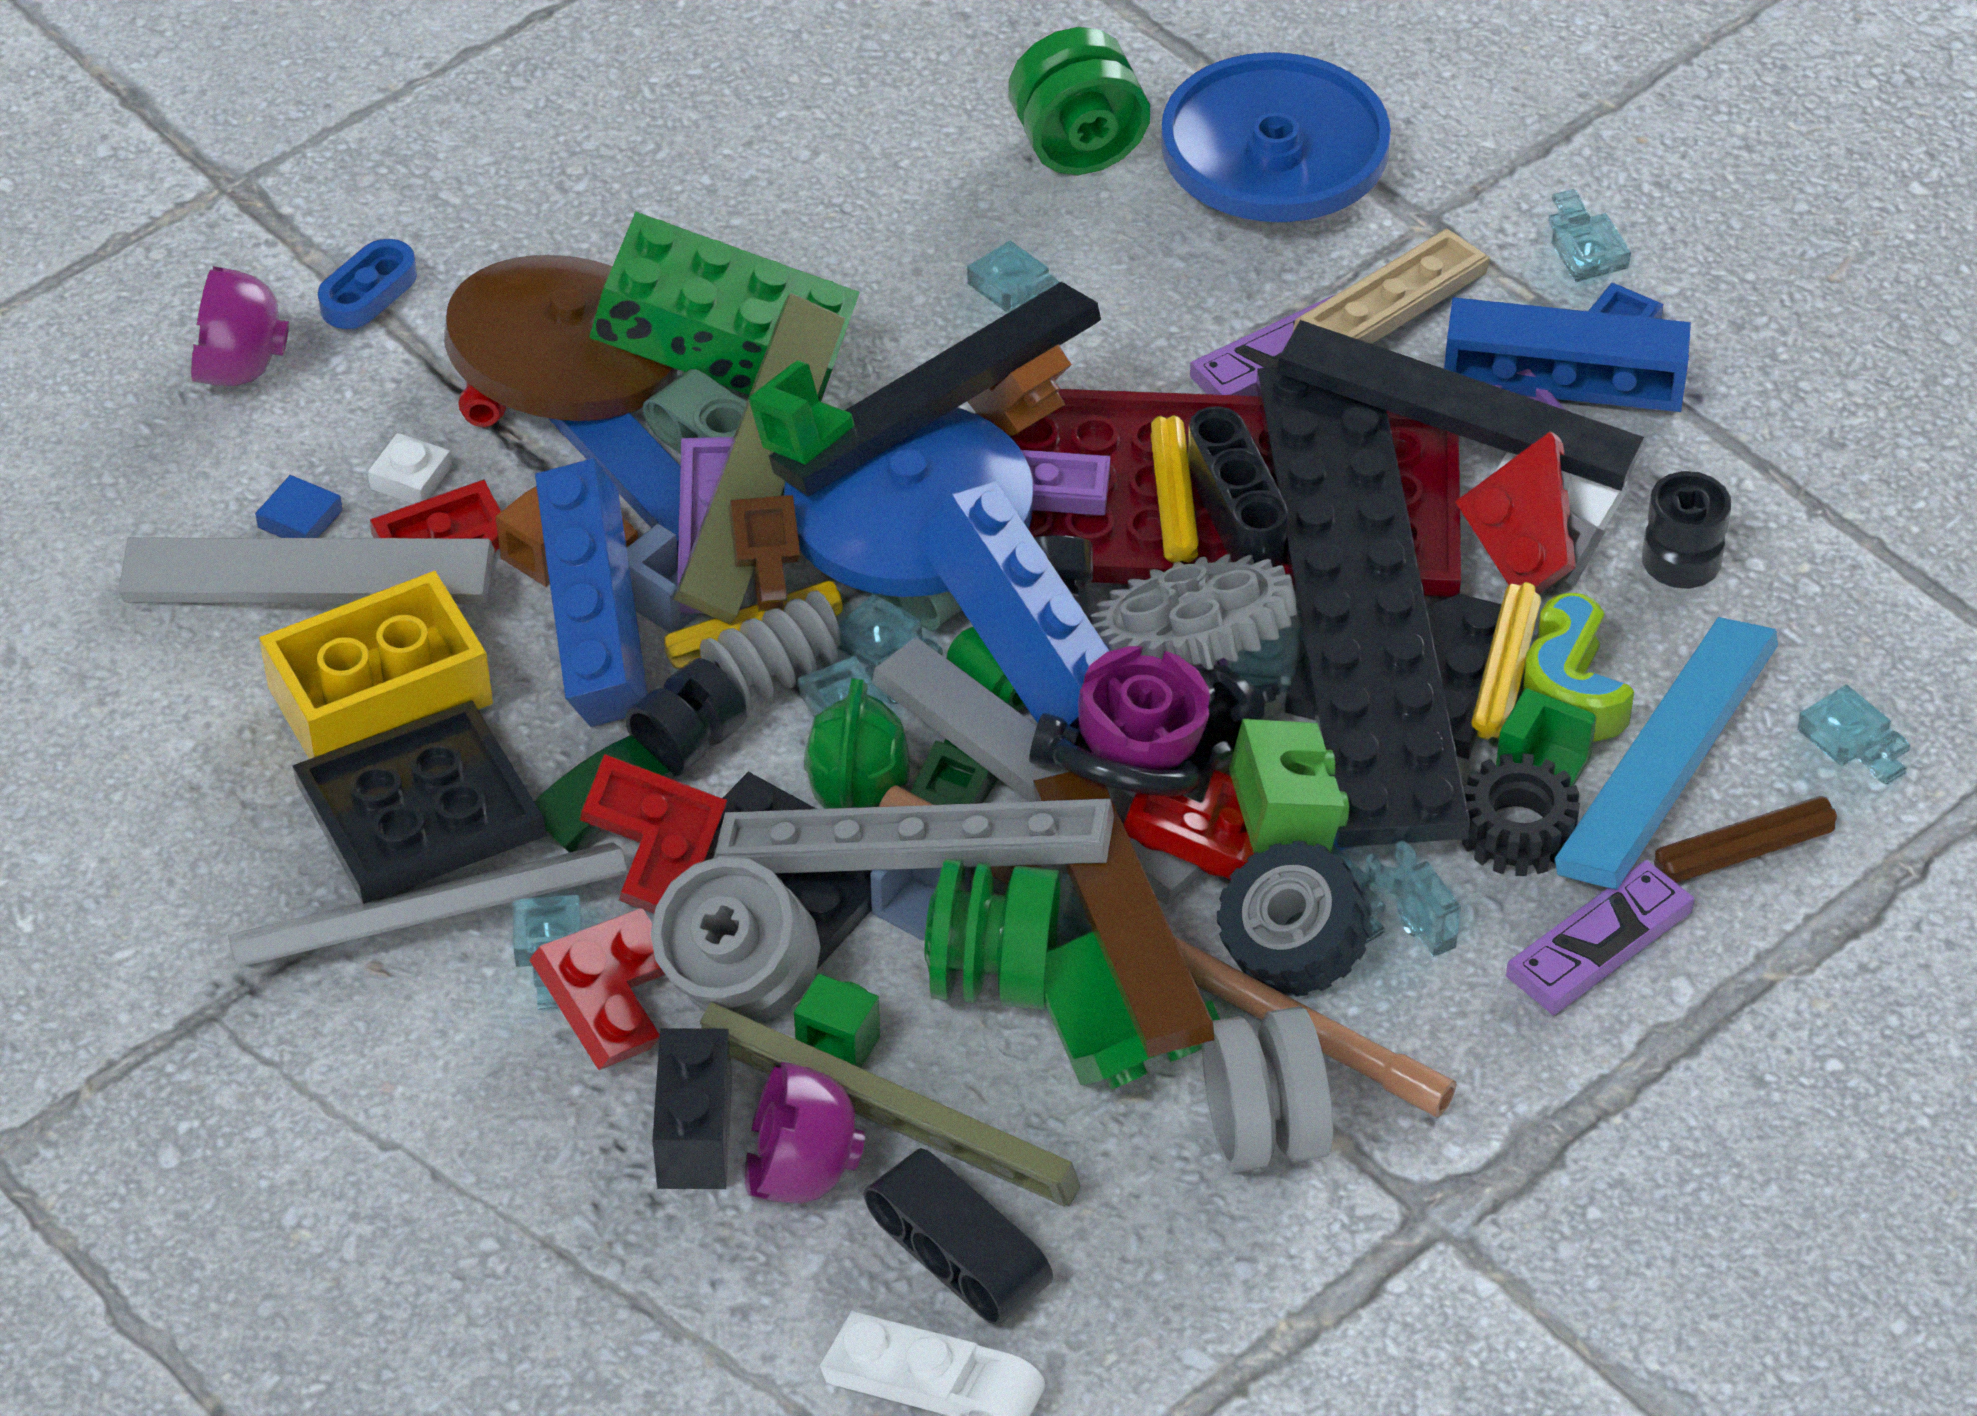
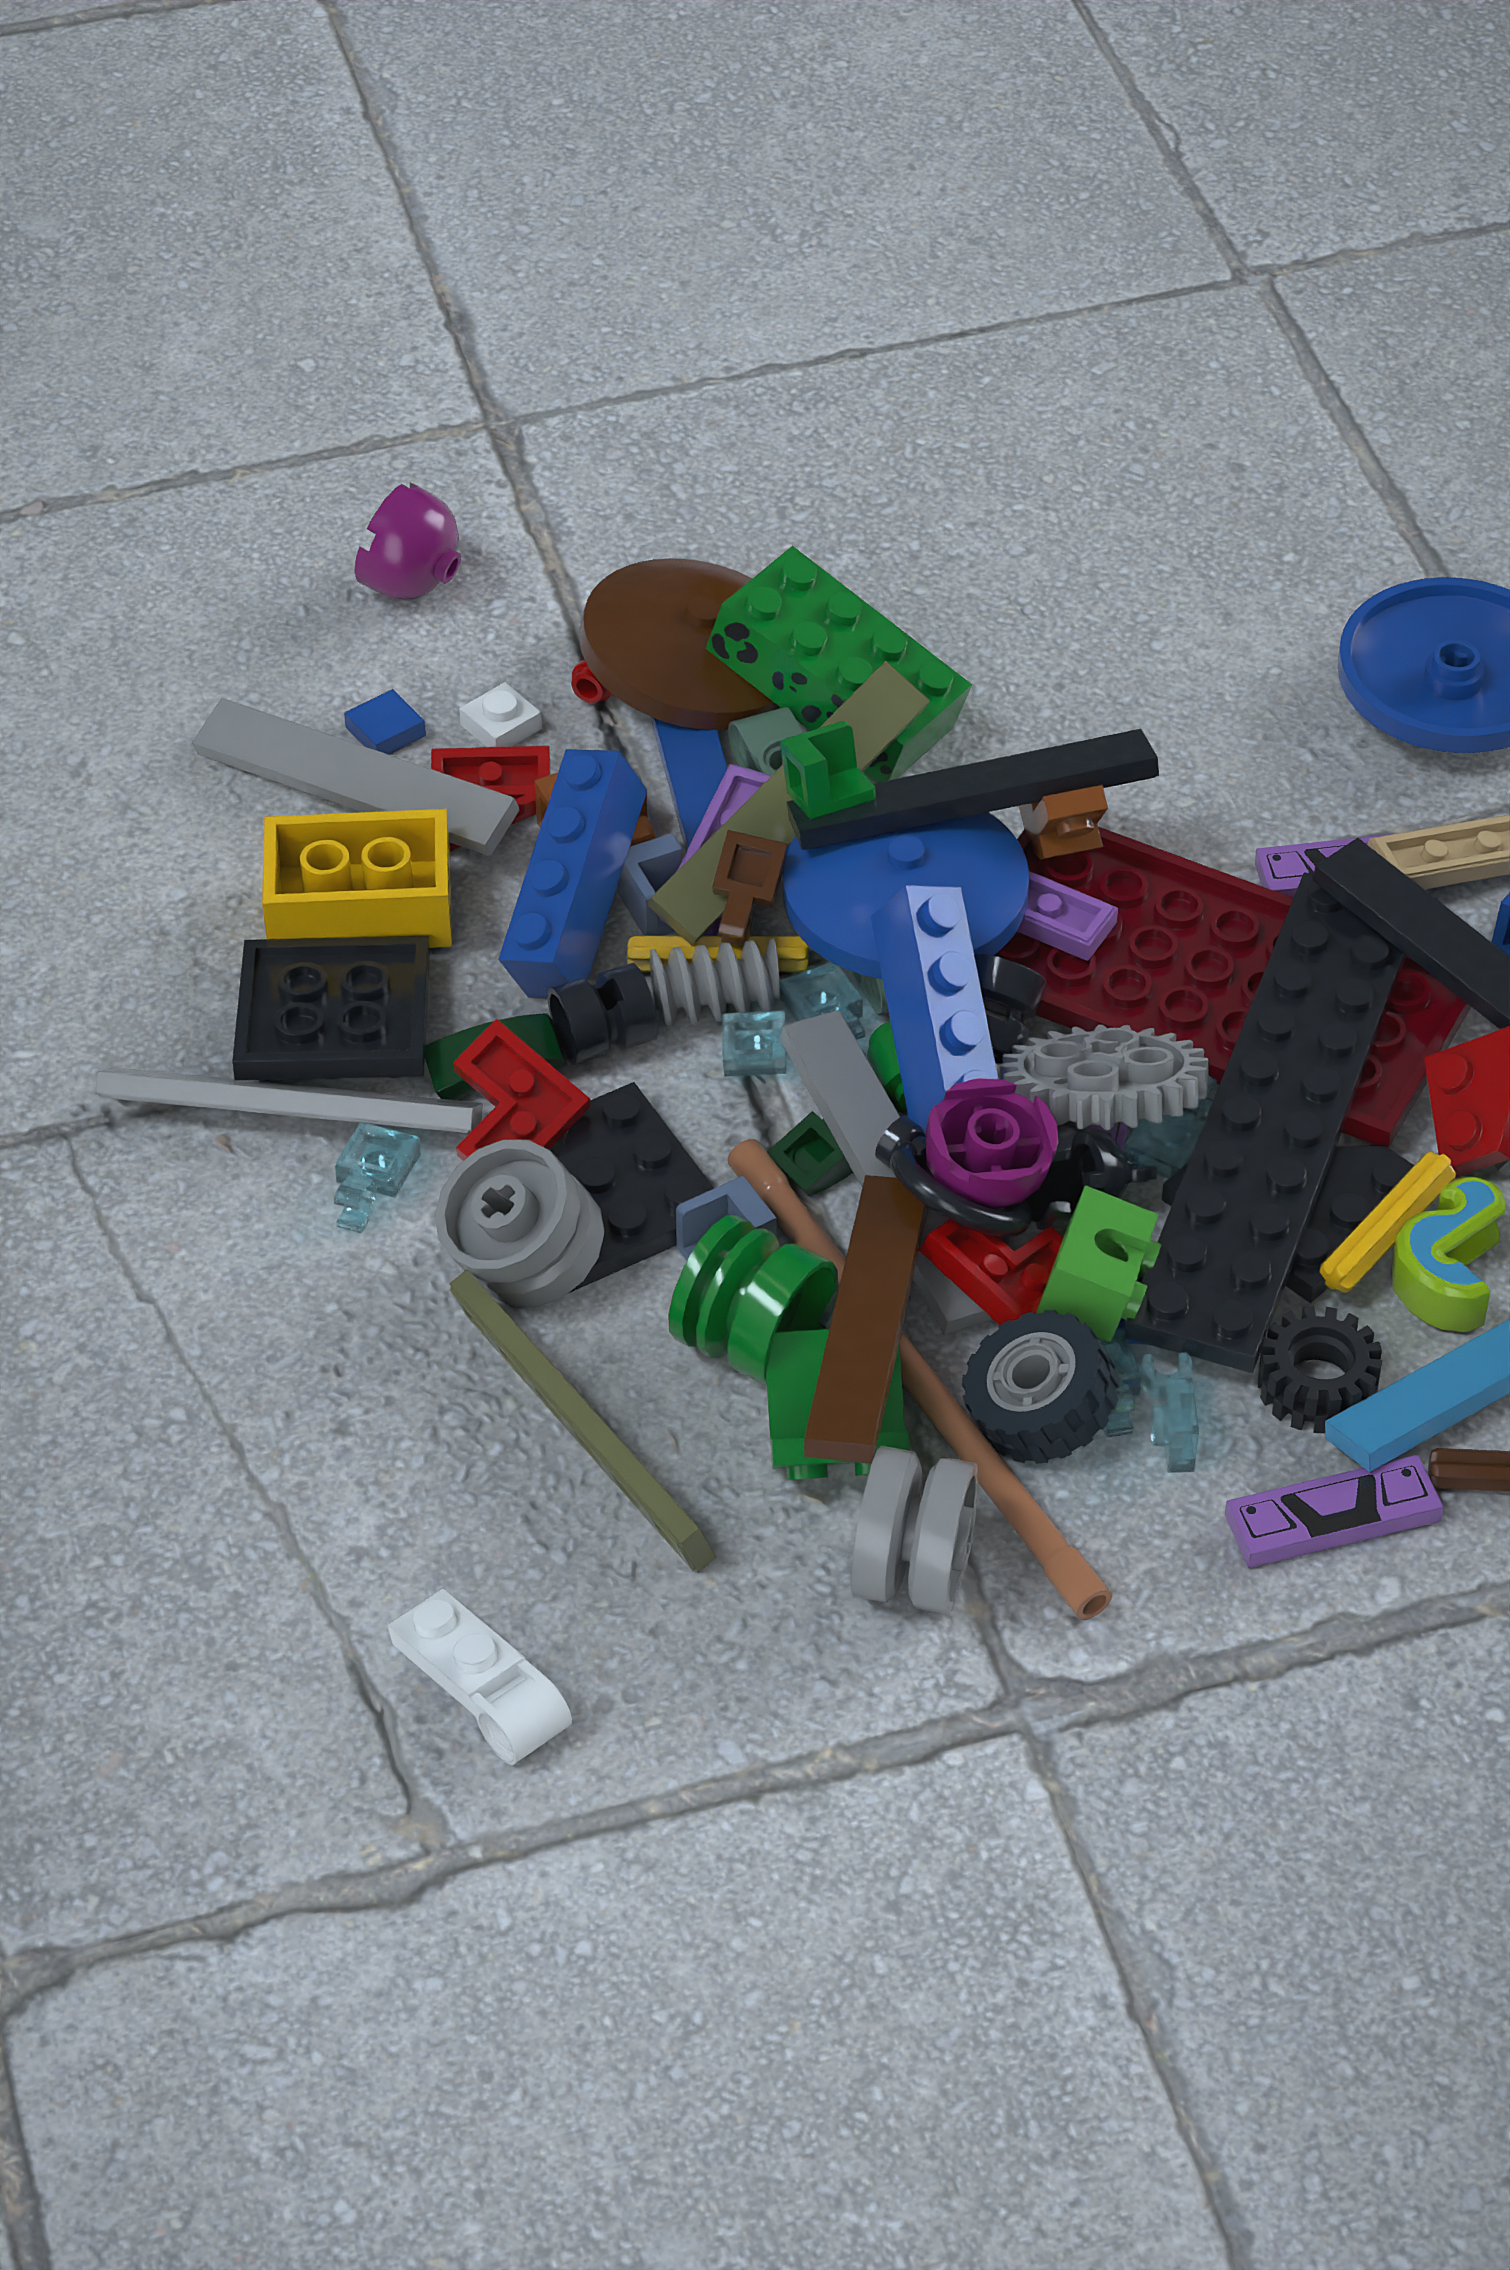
camera: 25 degrees right, 0 degrees up
(367, 283) = (555, 543): blue plate -> none
(592, 985) = (380, 1218): red plate -> none
(692, 1108) = (406, 1358): black brick -> none
(802, 1137) = (484, 1419): magenta cylinder -> none
(838, 1019) = (578, 1331): green plate -> none
(856, 751) = (733, 1096): green helmet -> none
(920, 836) = (731, 1186): light grey tile -> none
(958, 1236) = (573, 1558): black beam -> none
(1009, 276) = (1142, 710): clear light blue plate -> none
(1079, 101) = (1281, 574): green wheel -> none
(1174, 489) = (1161, 958): yellow axle -> none
(1236, 486) = (1216, 974): black beam -> none
(1550, 732) = (1390, 1304): green panel -> none

